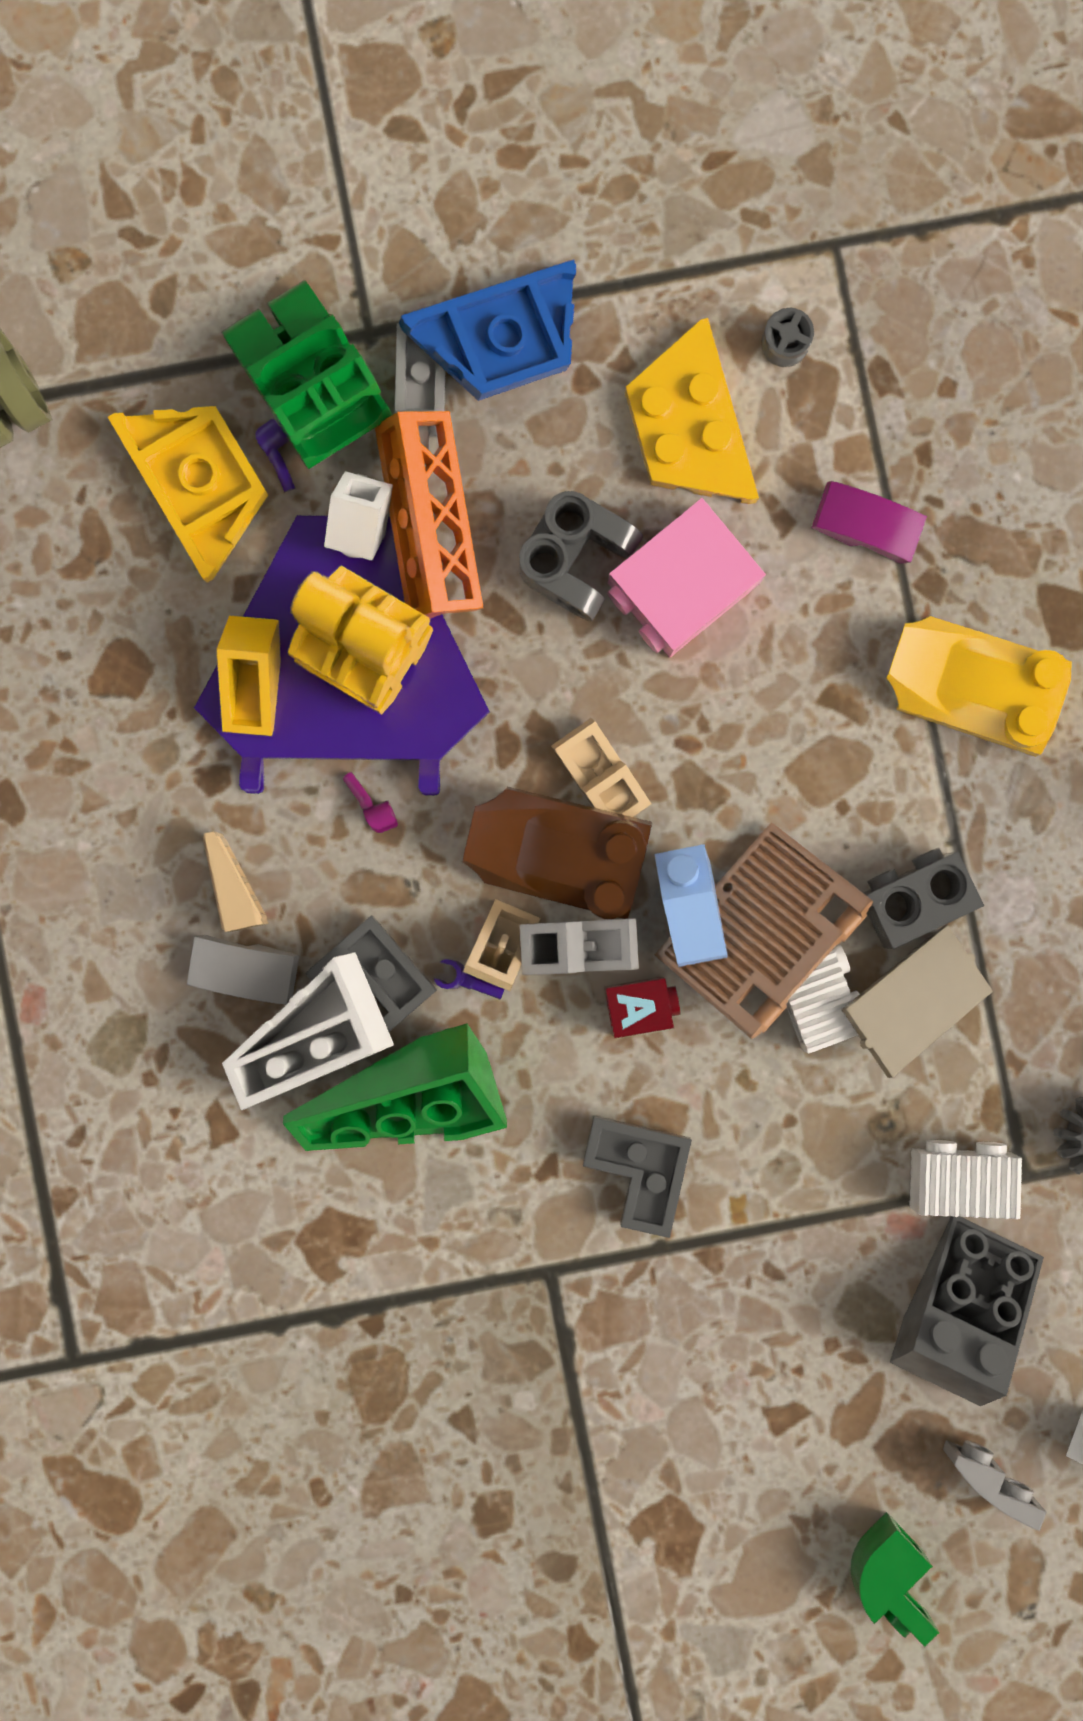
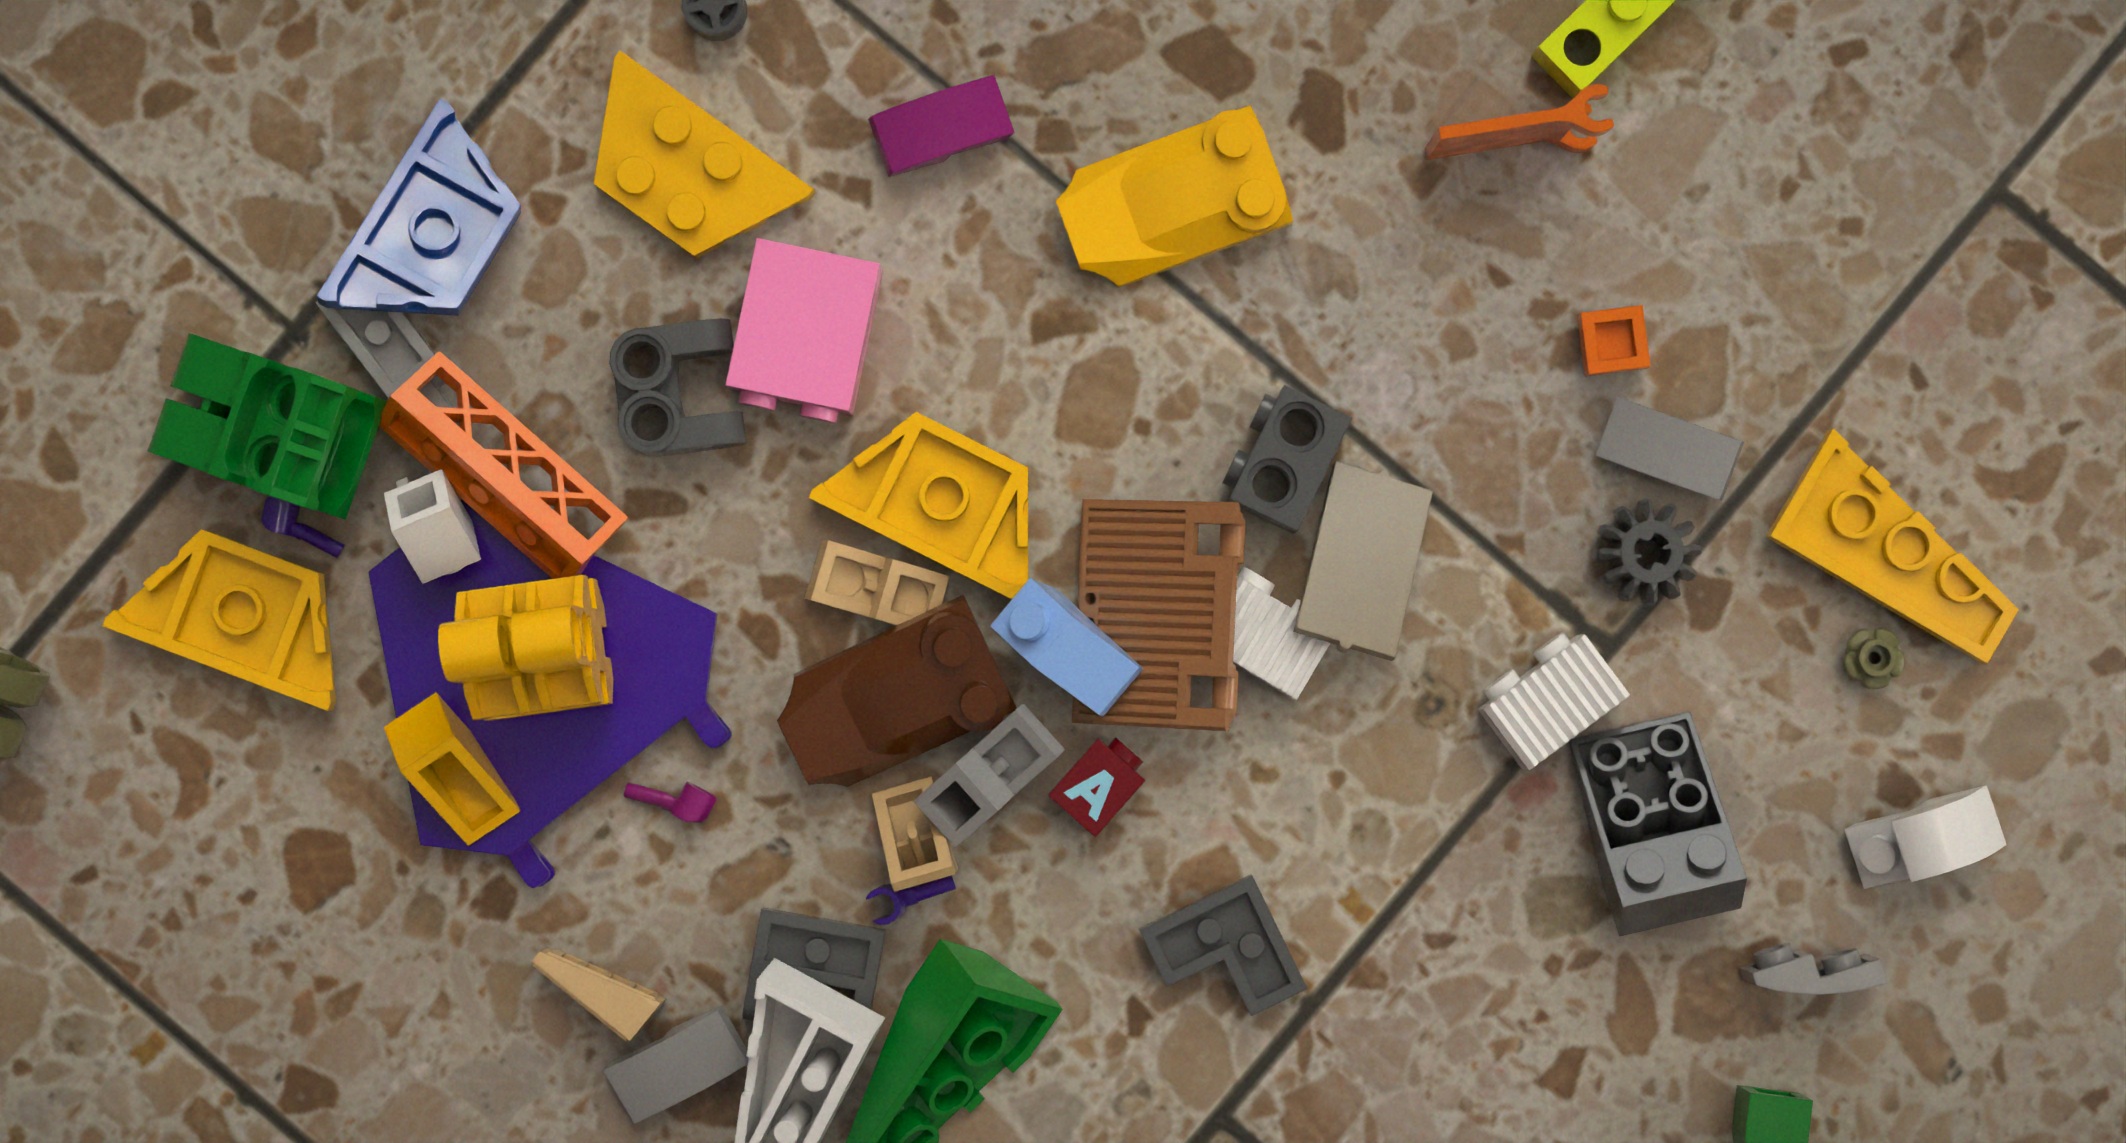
camera: 40 degrees left, 0 degrees up
(683, 752) = (940, 500): none -> yellow wing

